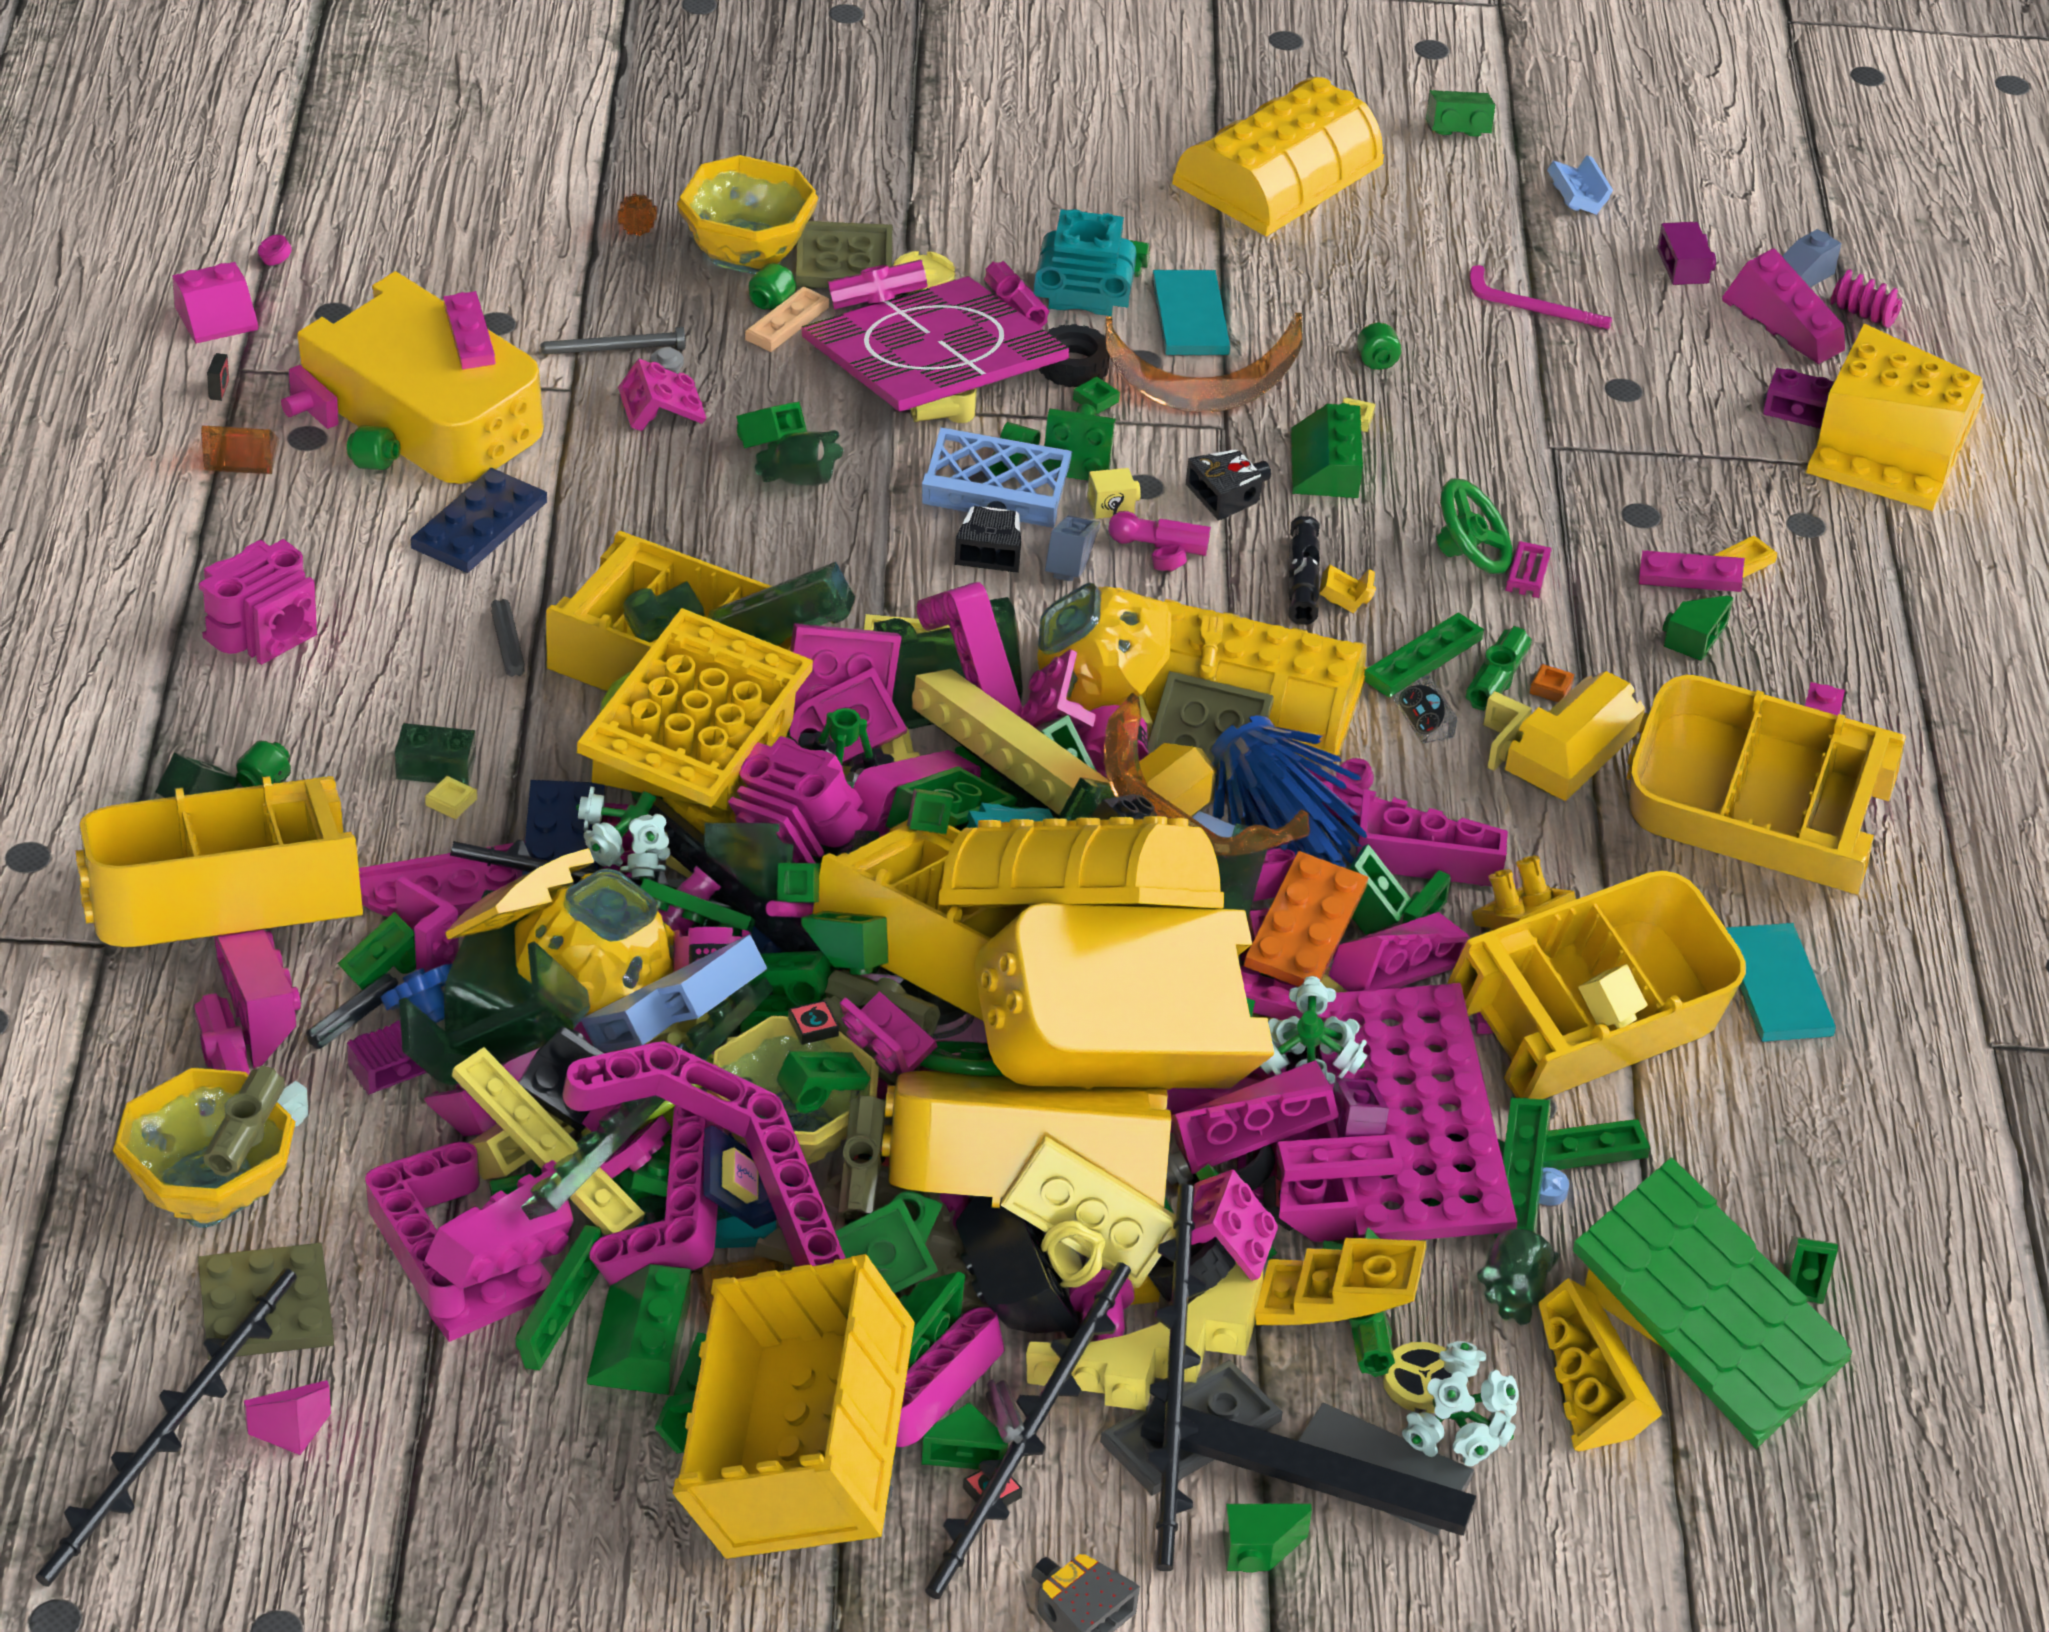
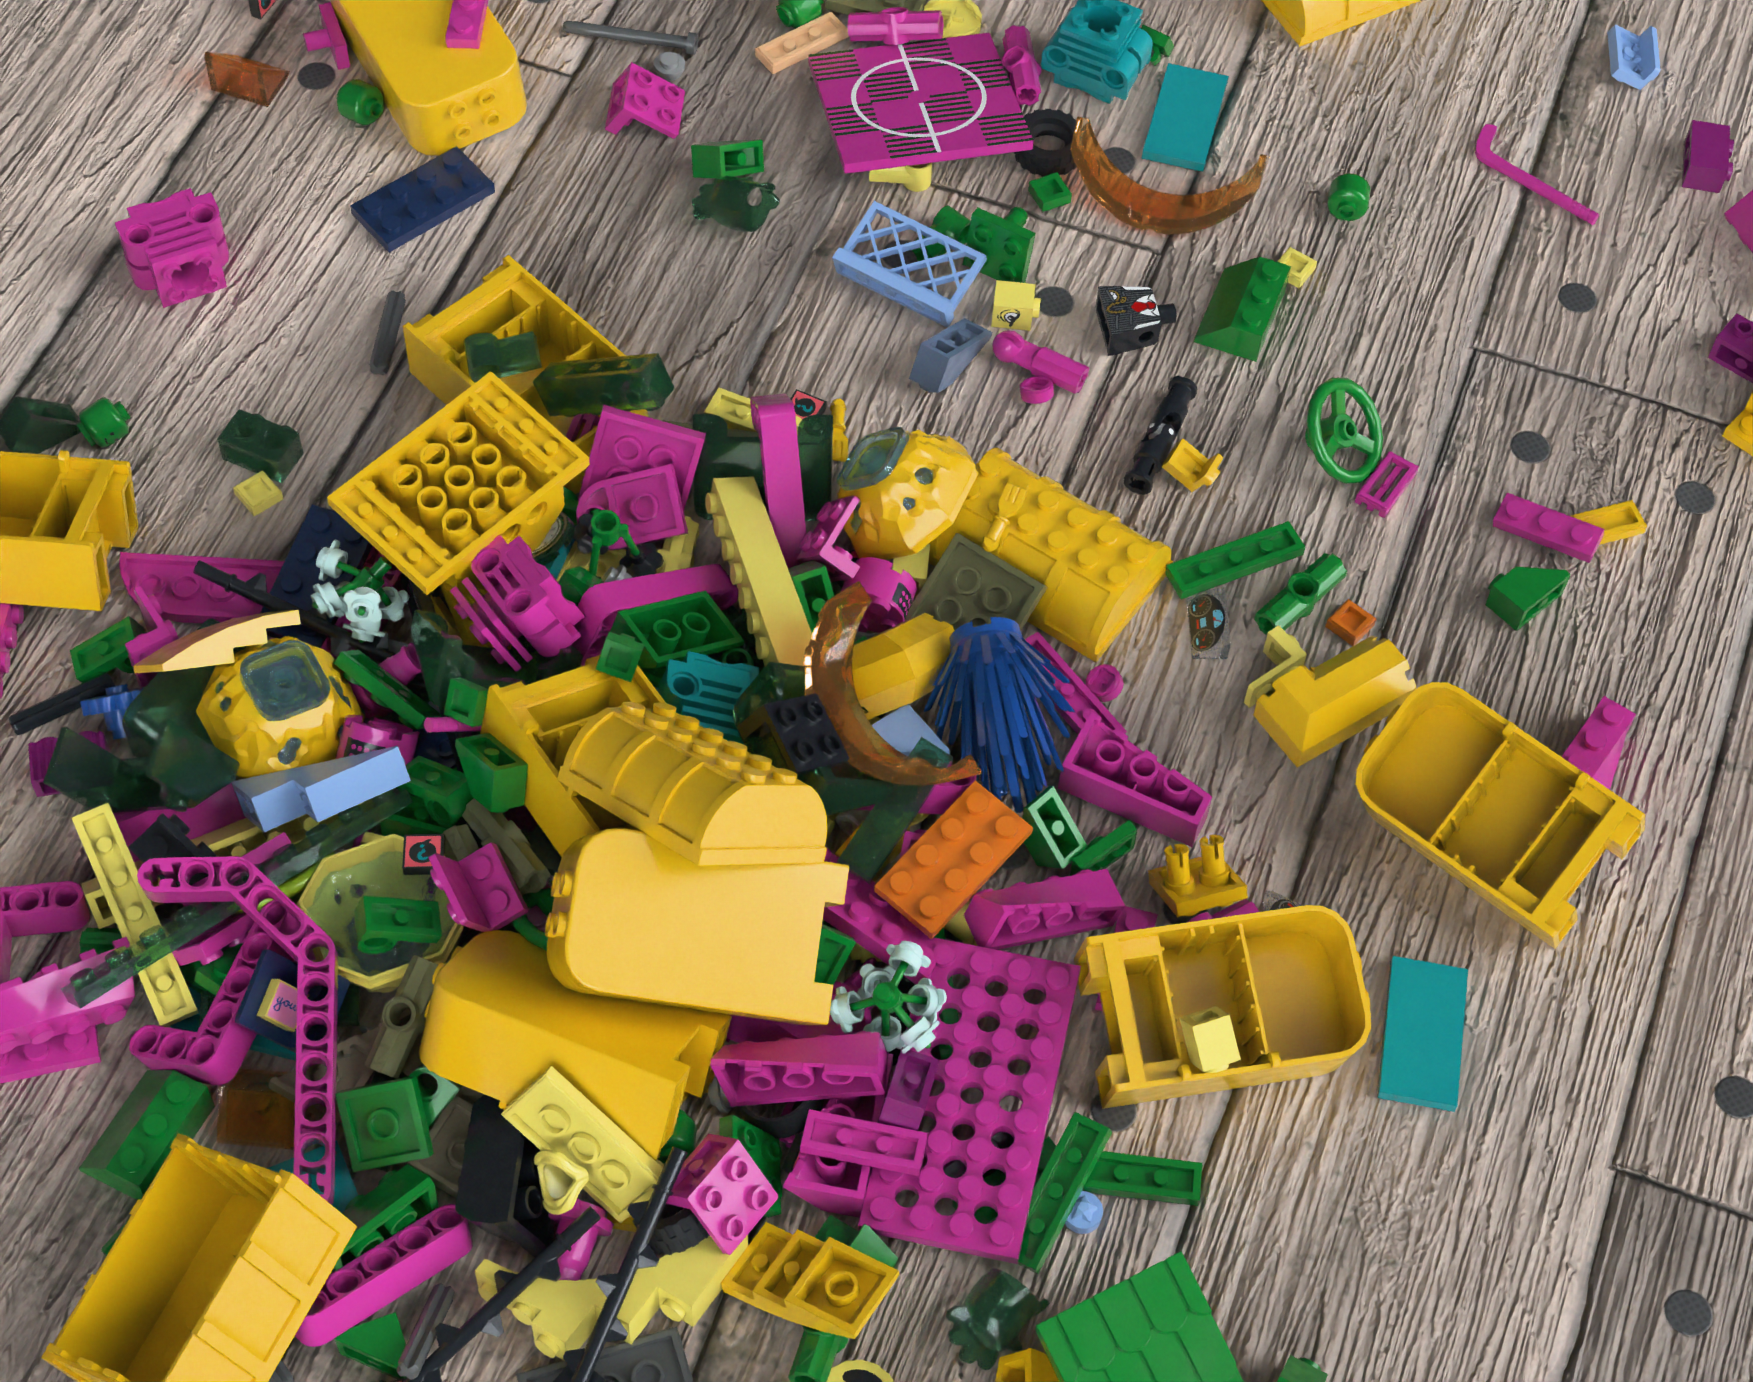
camera: 20 degrees right, 15 degrees up
(559, 1301) = (85, 1079): green plate -> none
(989, 538) = (874, 328): black torso -> none

